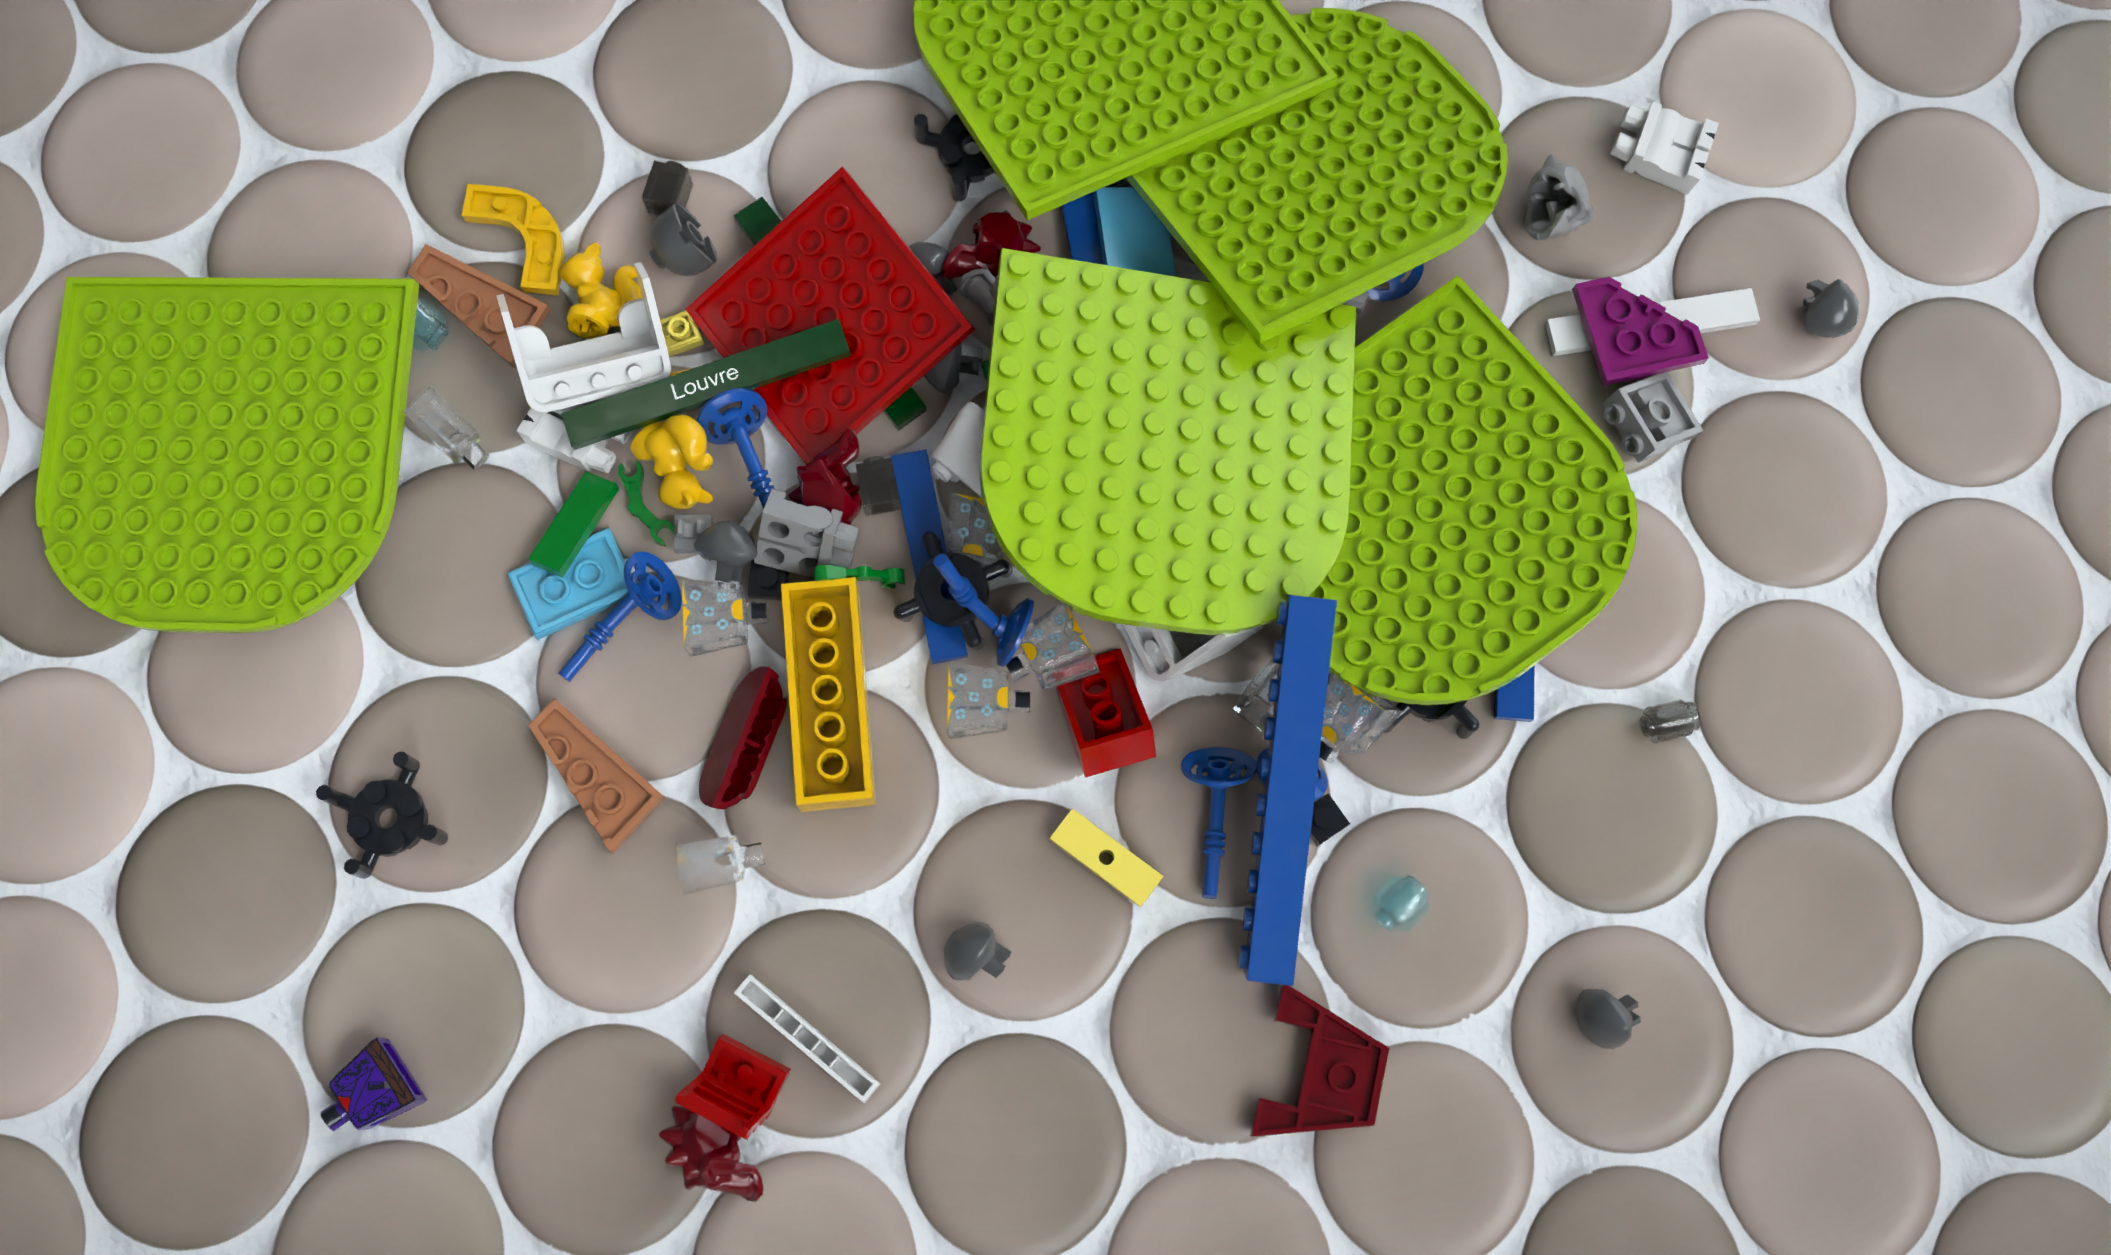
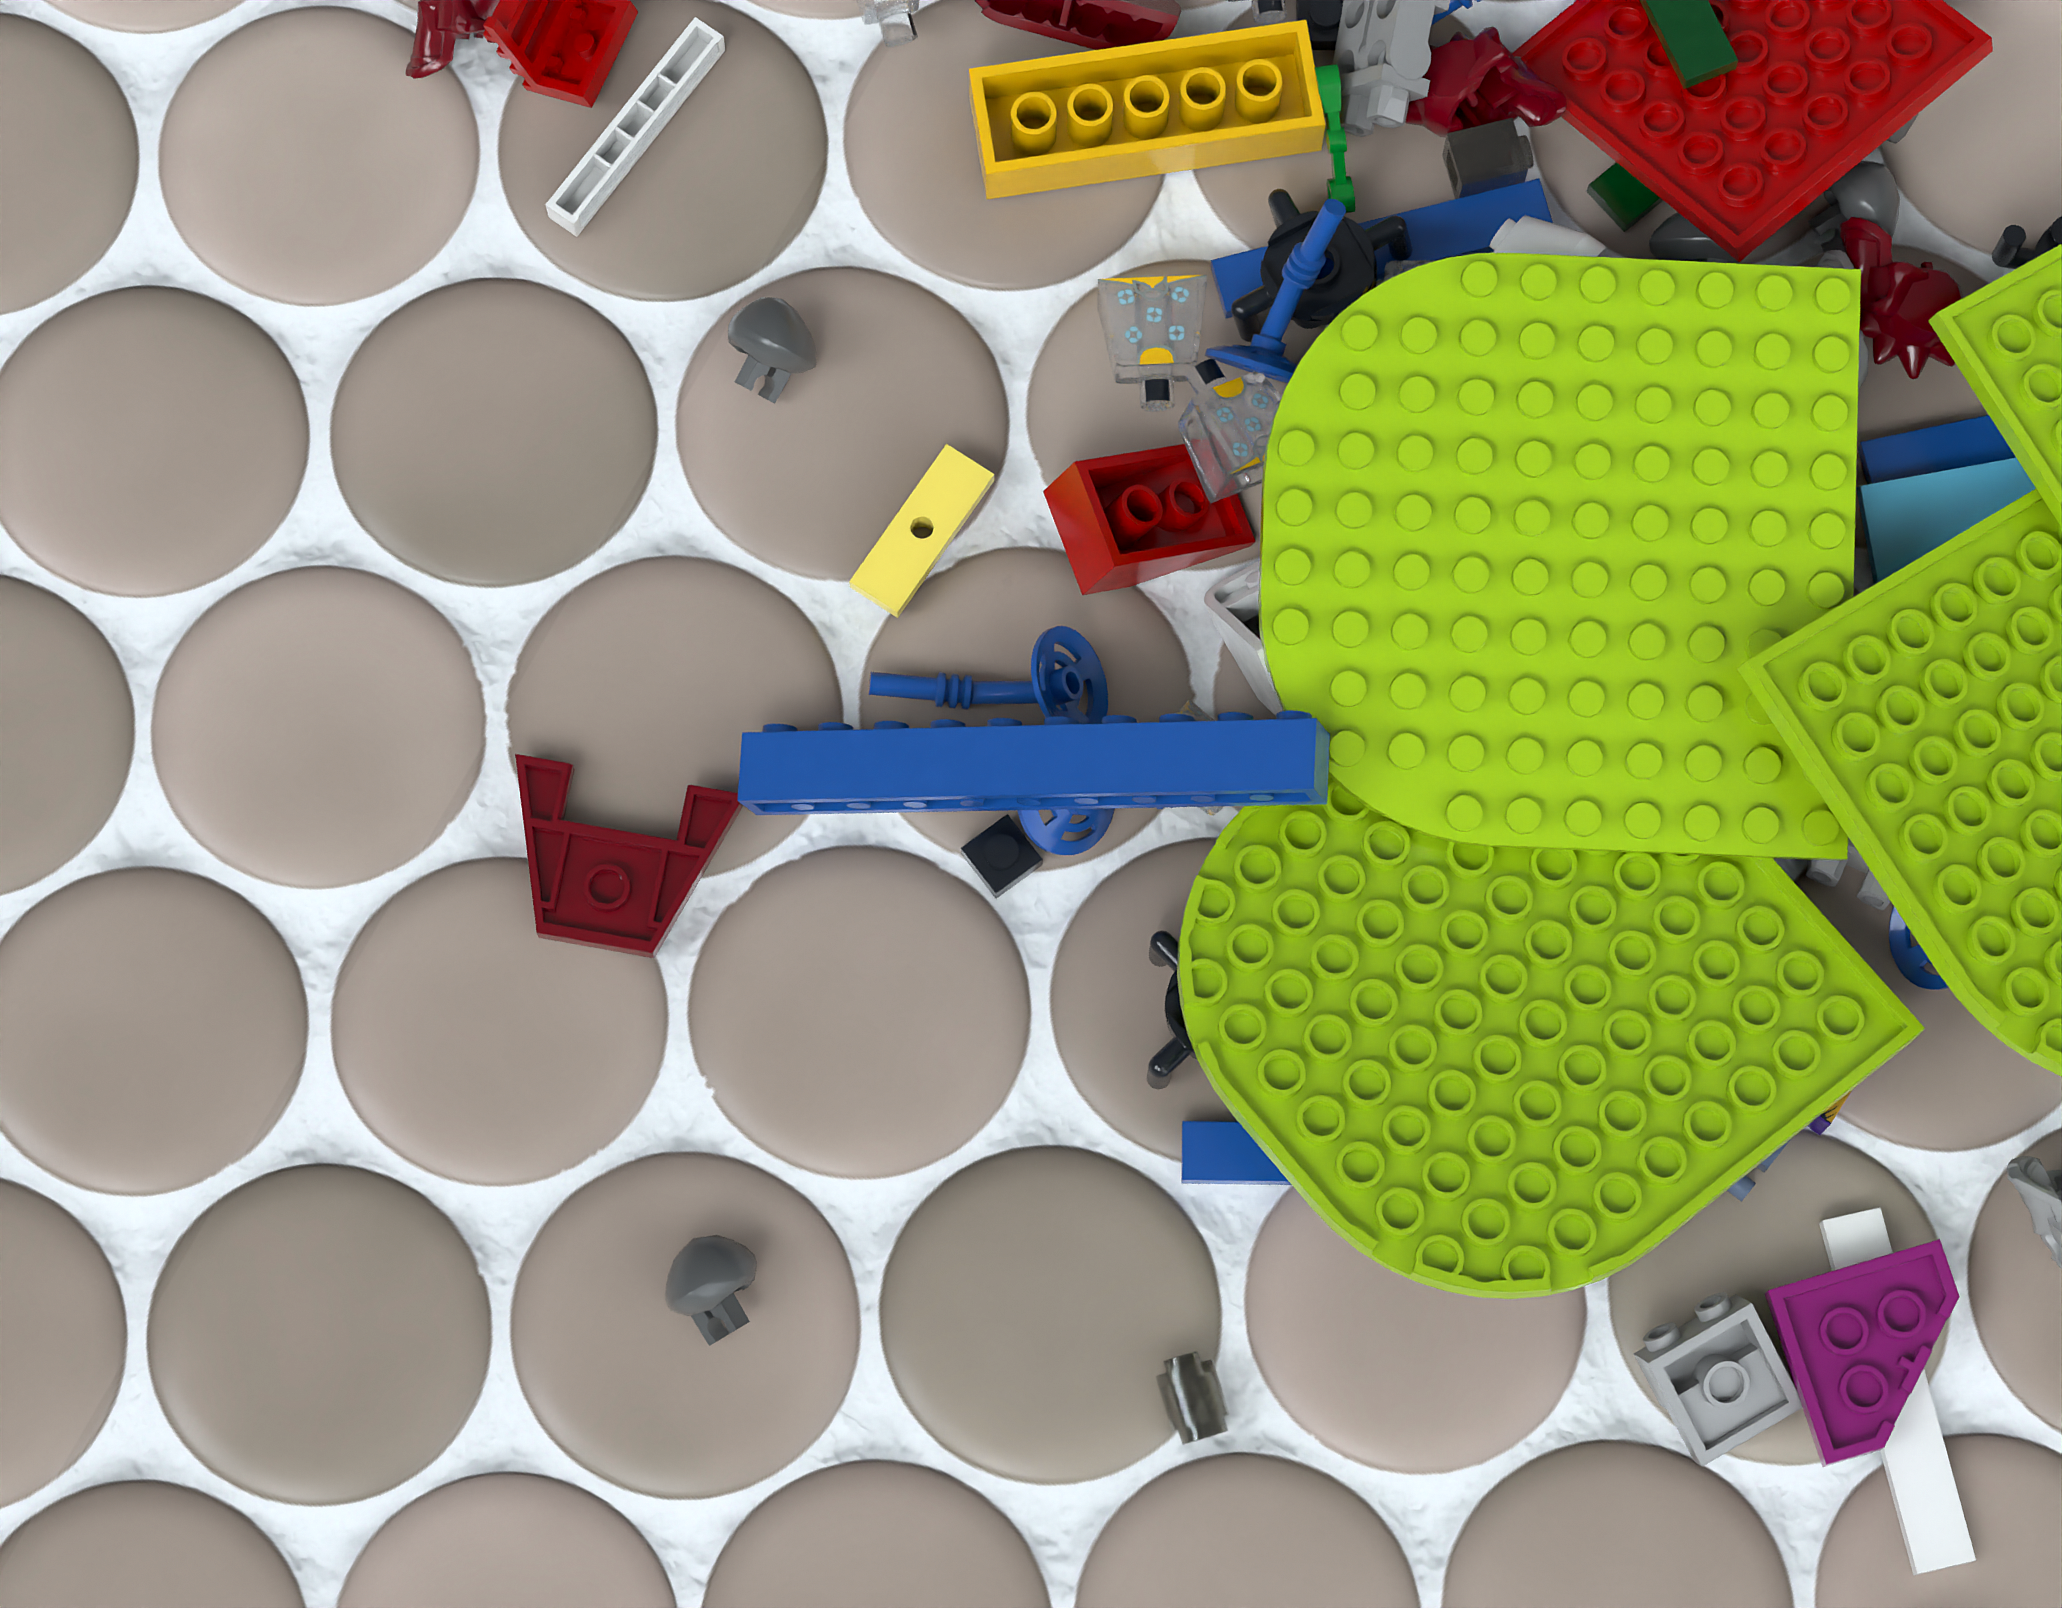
camera: 90 degrees right, 0 degrees up
(1352, 719) = (1152, 875): clear torso -> none
(1401, 903) = (874, 972): clear light blue head -> none

